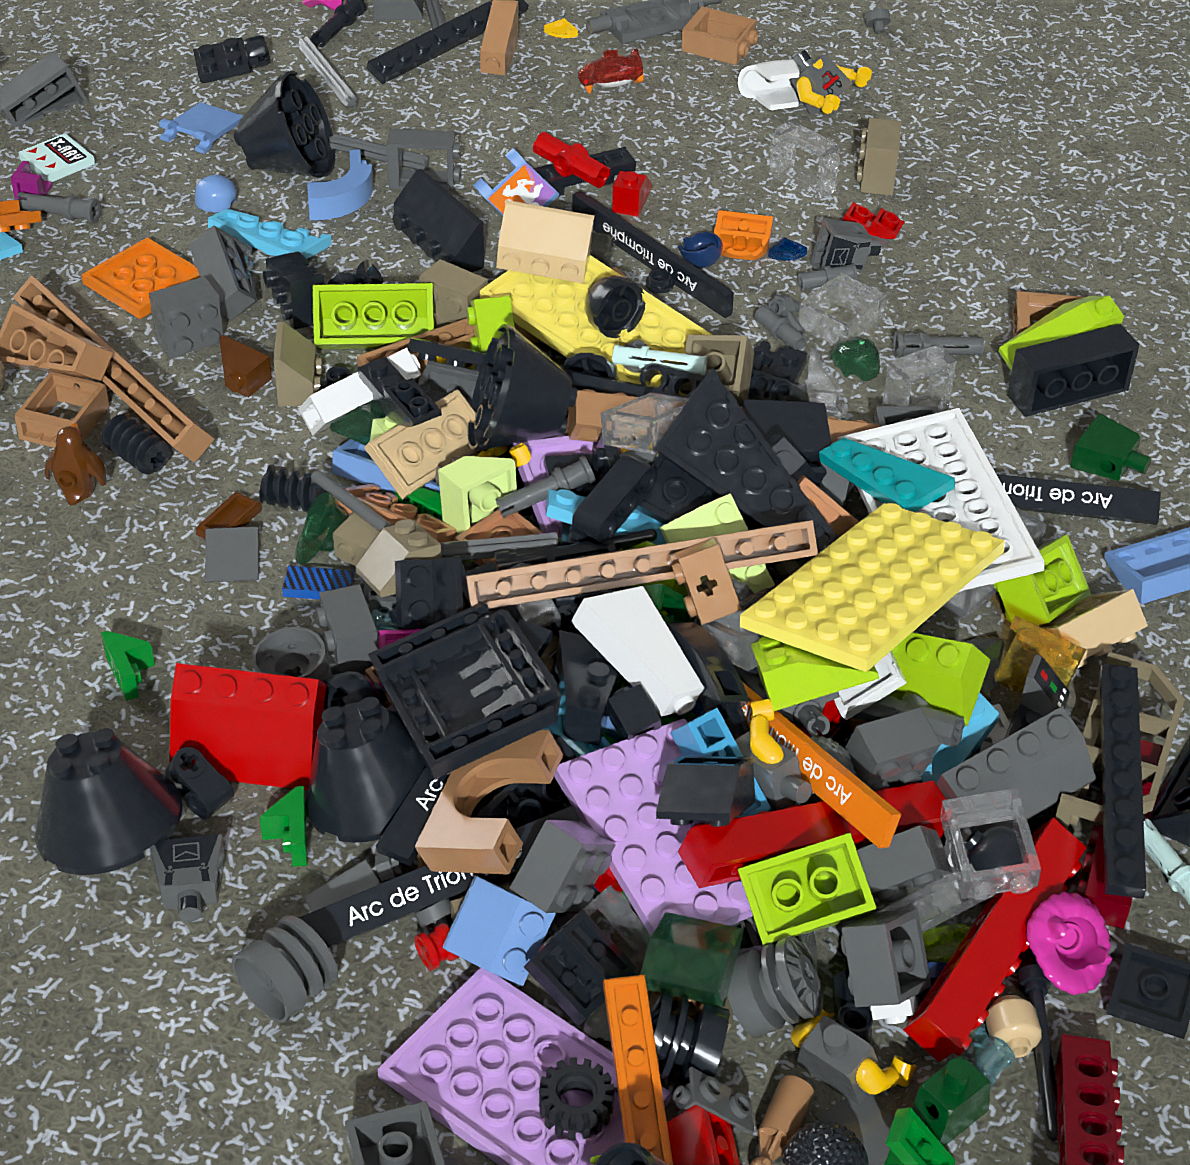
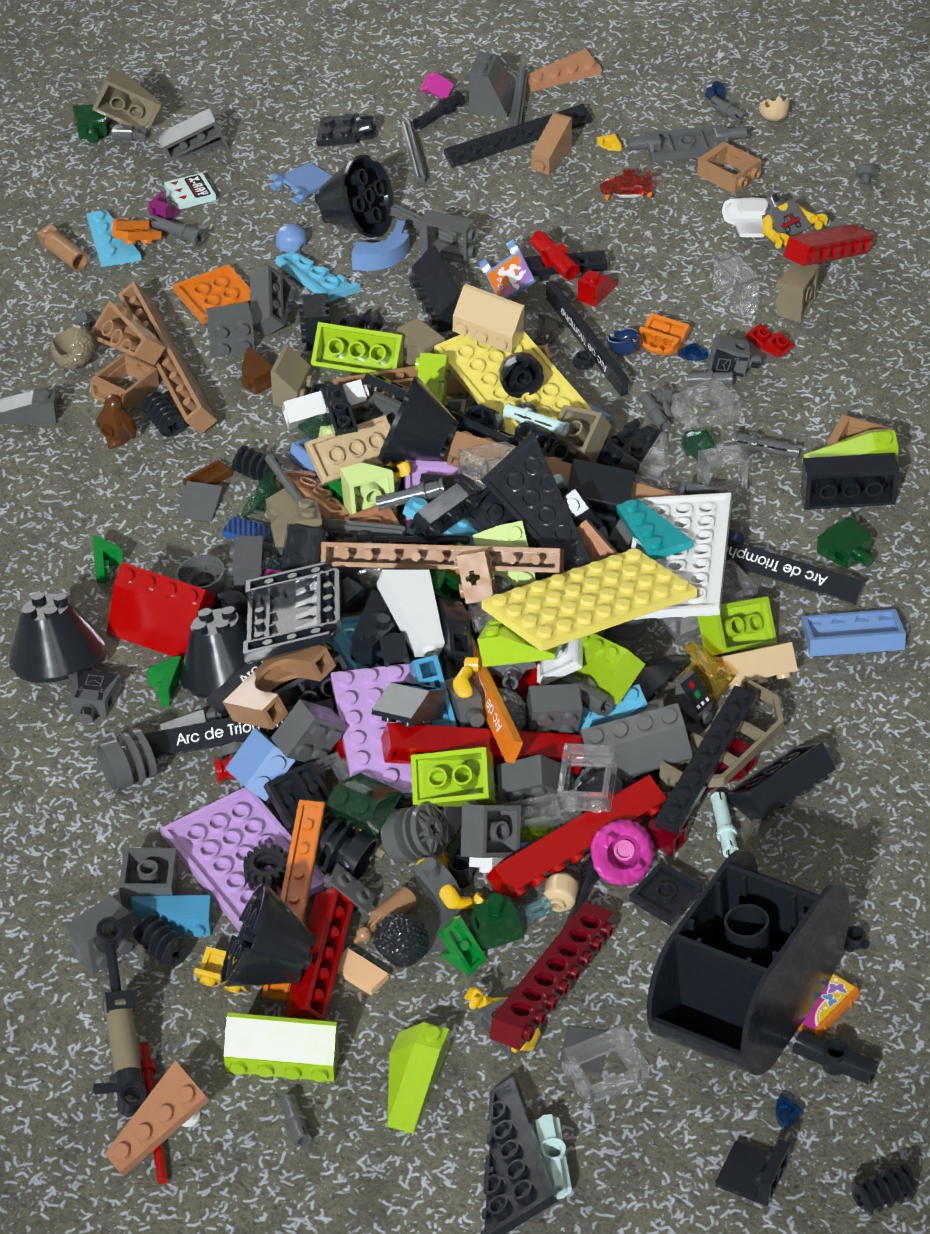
camera: 20 degrees right, 0 degrees up
(200, 784) = (120, 644): black piece -> none
(895, 98) = (828, 245): none -> red brick

